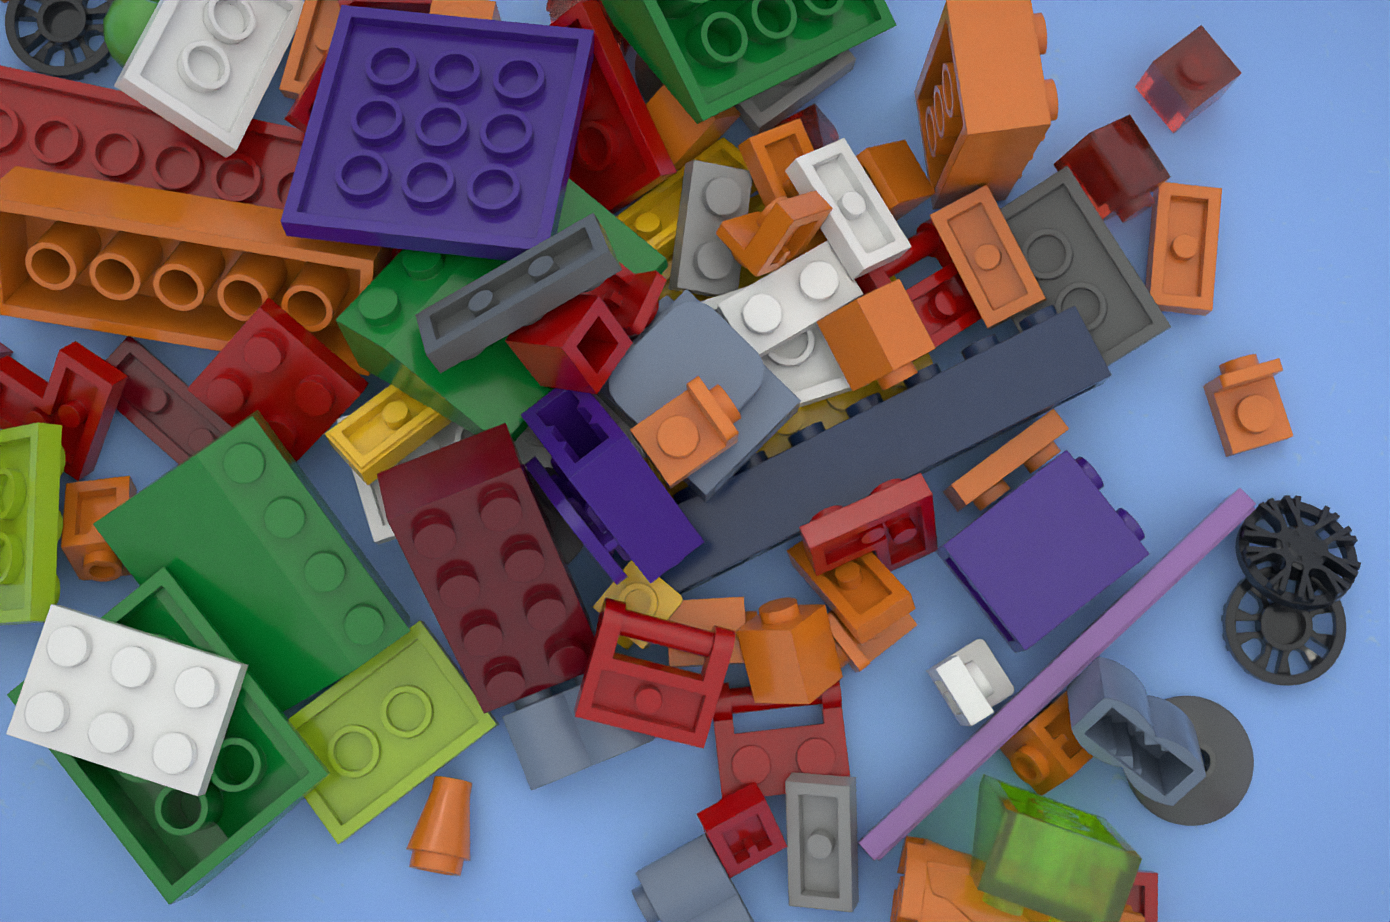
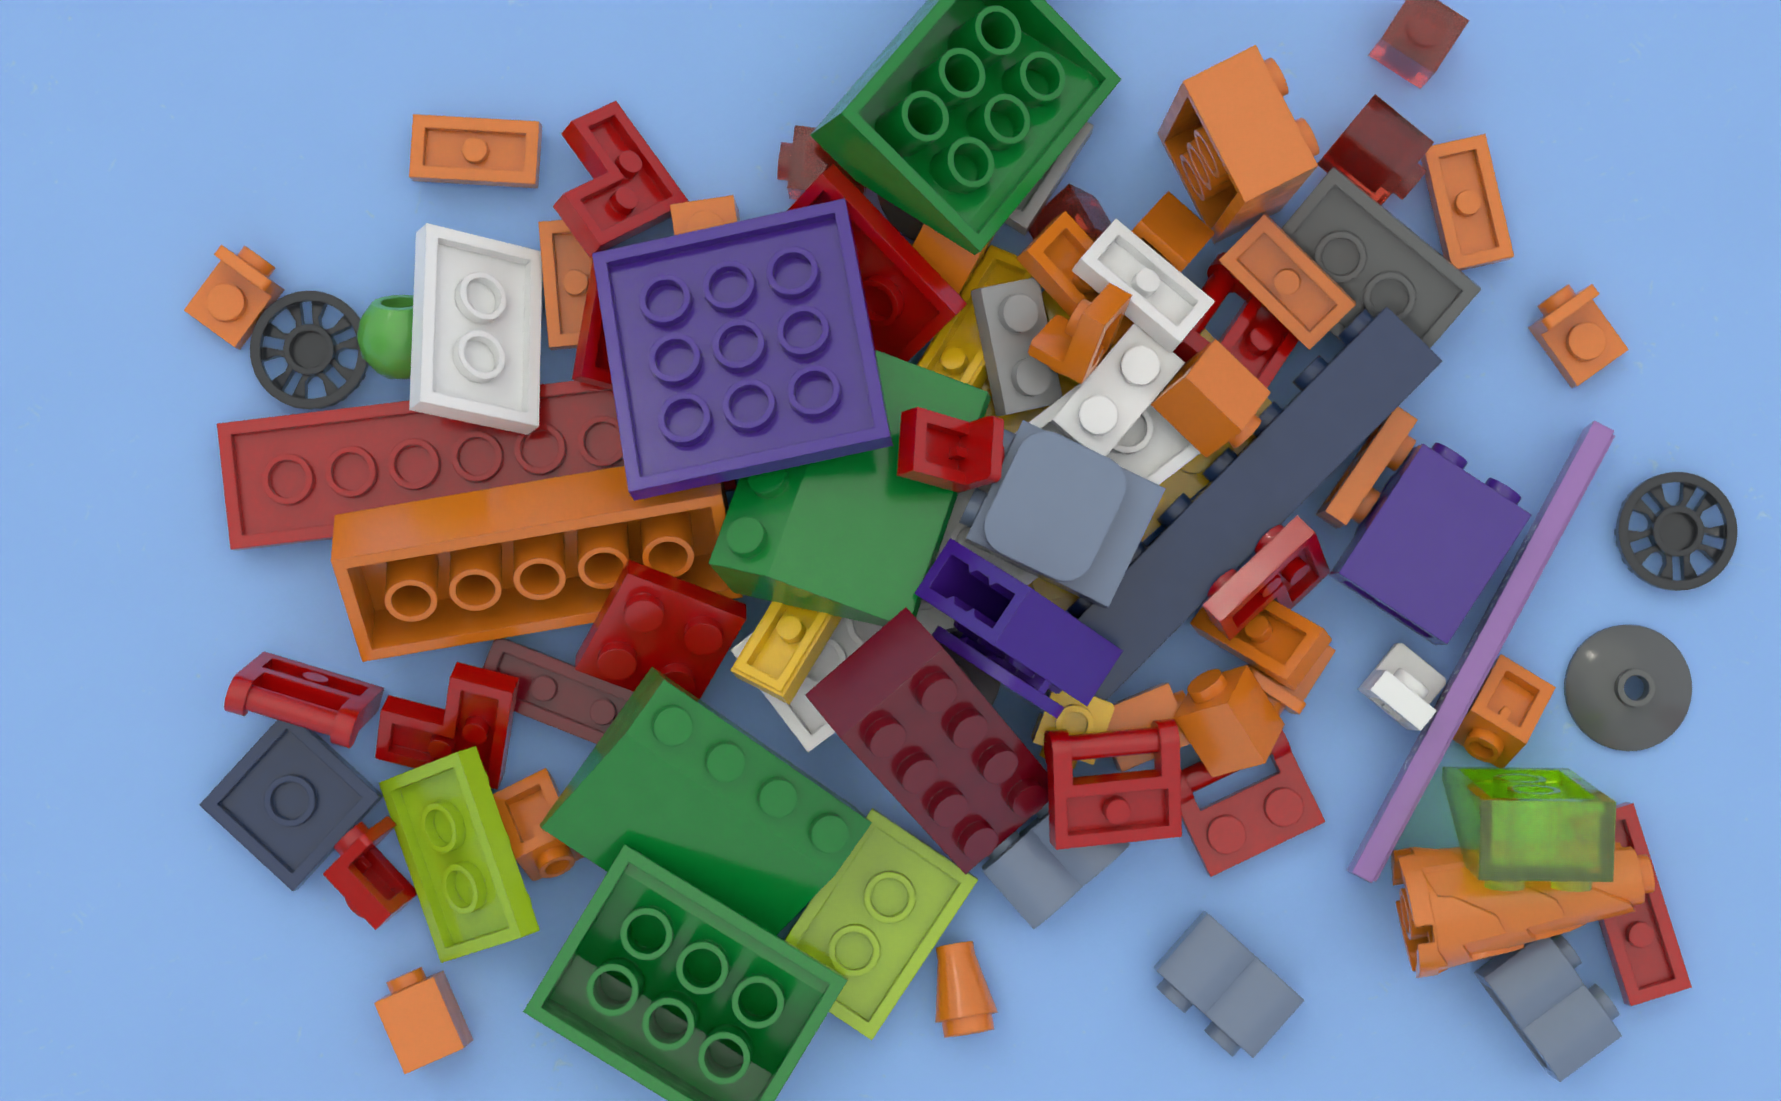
camera: 20 degrees left, 5 degrees up
(127, 700) = (639, 977): white plate -> none
(517, 293) = (878, 486): dark grey plate -> none
(572, 345) = (938, 512): red brick -> none
(688, 431) = (1077, 558): orange bracket -> none
(742, 829) = (1241, 897): red bracket -> none
(822, 841) = (1316, 882): light grey plate -> none
(1135, 731) = (1571, 682): sand blue brick -> none
(1297, 553) = (1667, 460): black wheel -> none

